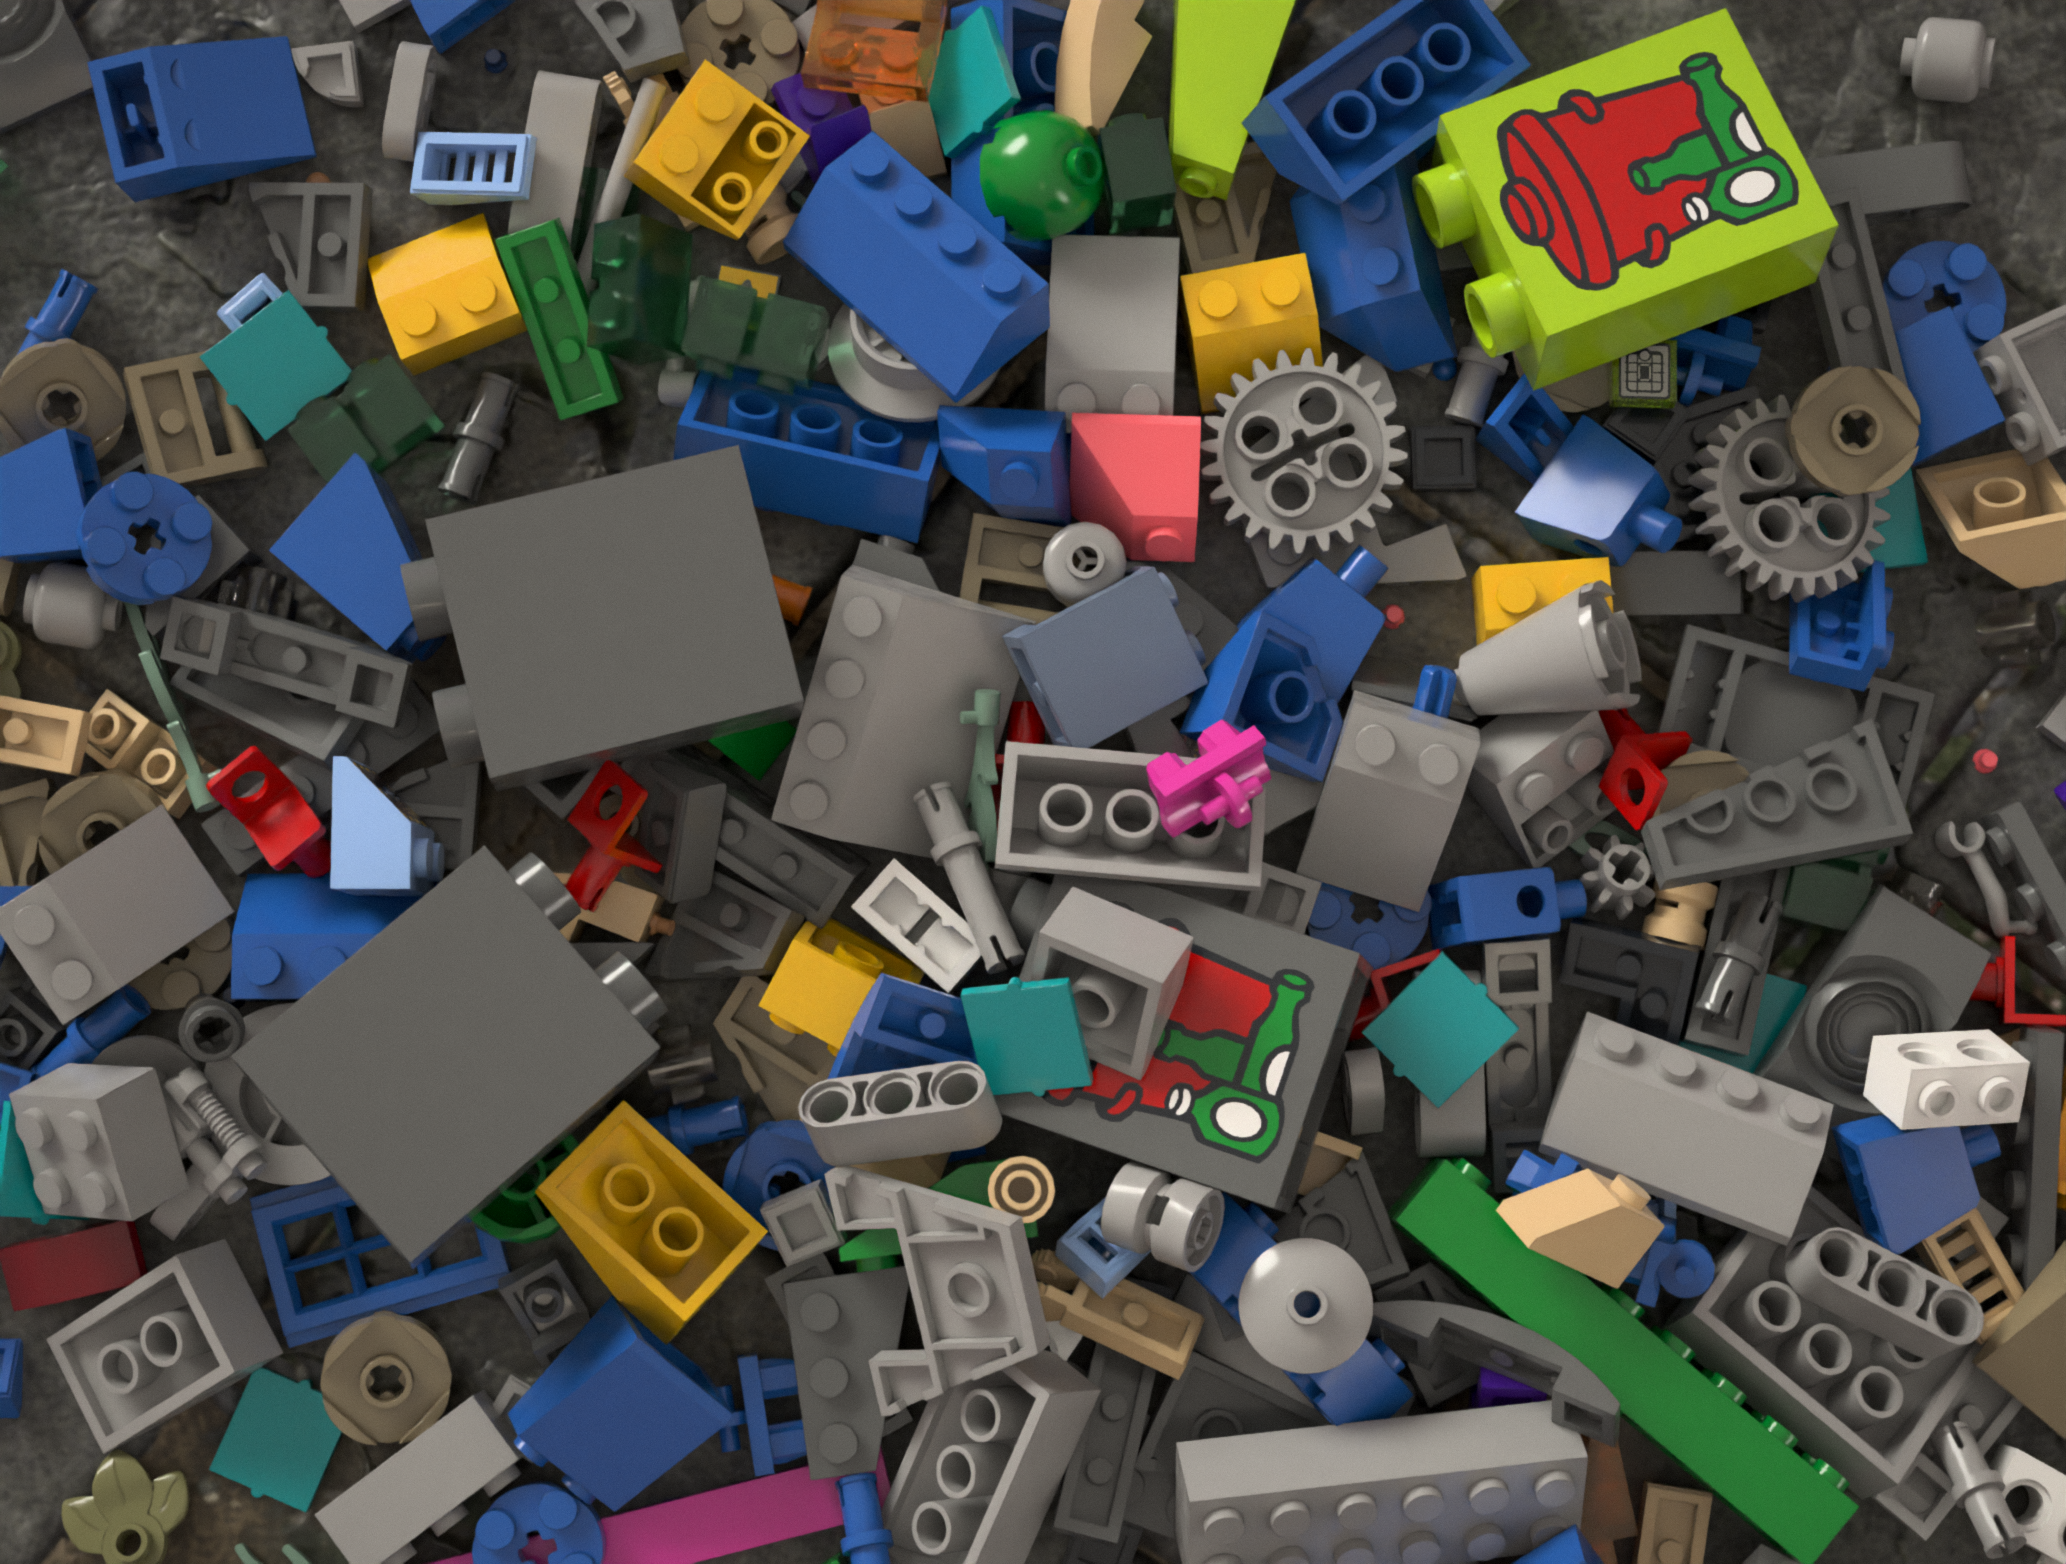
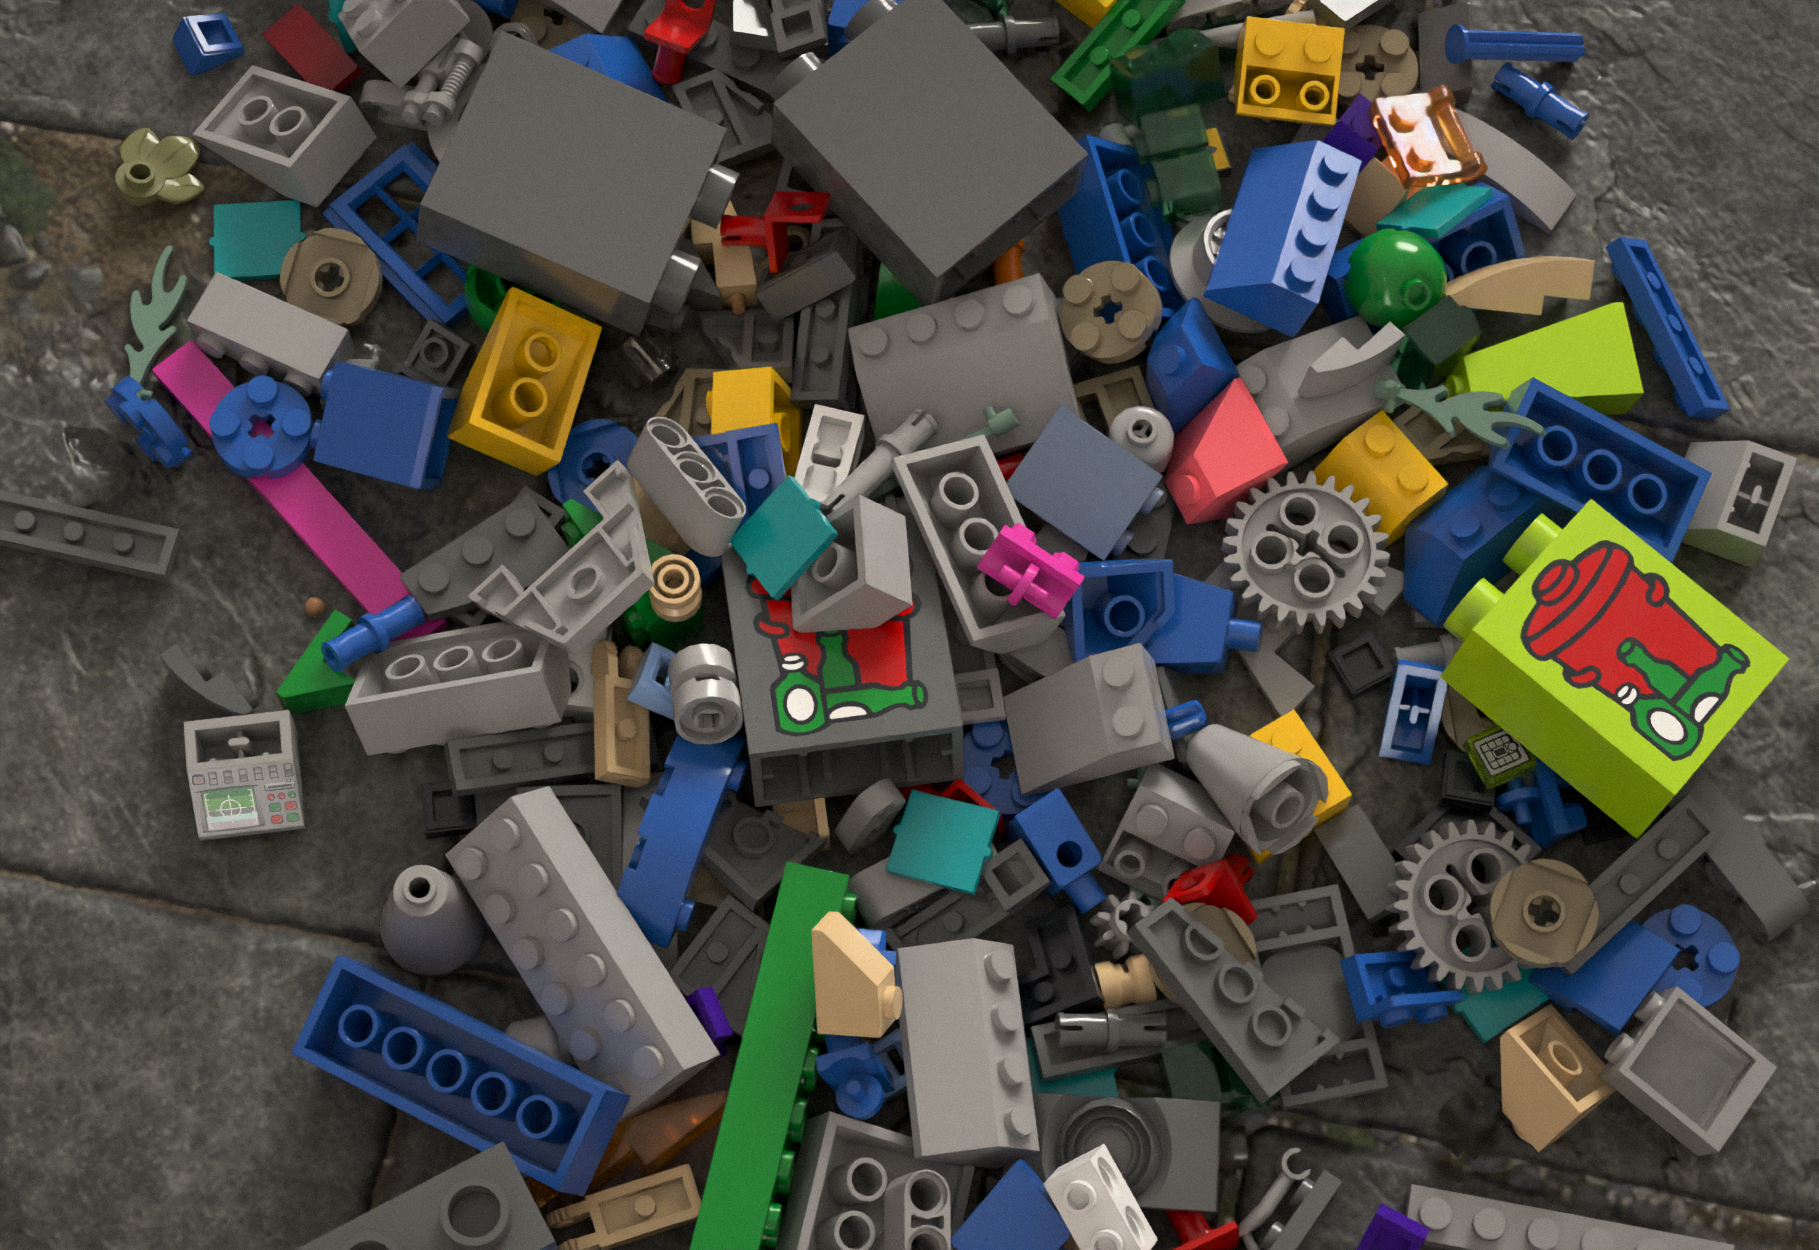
camera: 60 degrees right, 15 degrees down
(378, 838) = (702, 72): light blue slope -> none
(702, 1124) = (604, 389): blue pin -> none
(769, 1442) = (423, 521): blue hips -> none
(770, 228) = (1262, 134): tan wheel -> none
(802, 1223) = (571, 481): light grey tile -> none
(947, 498) = (1132, 327): none -> dark tan plate
(1120, 289) = (1346, 366): none -> light grey slope
(1253, 188) = (1466, 407): none -> sand green piece
(1279, 1331) = (688, 841): light grey dish -> none
(1395, 616) = (1228, 688): coral piece -> none
(1423, 1328) = (720, 935): dark grey slope -> none
(1445, 369) = (1427, 635): blue piece -> none
(1599, 499) = (1391, 773): blue torso -> none
(1985, 761) = (1362, 1163): coral piece -> none

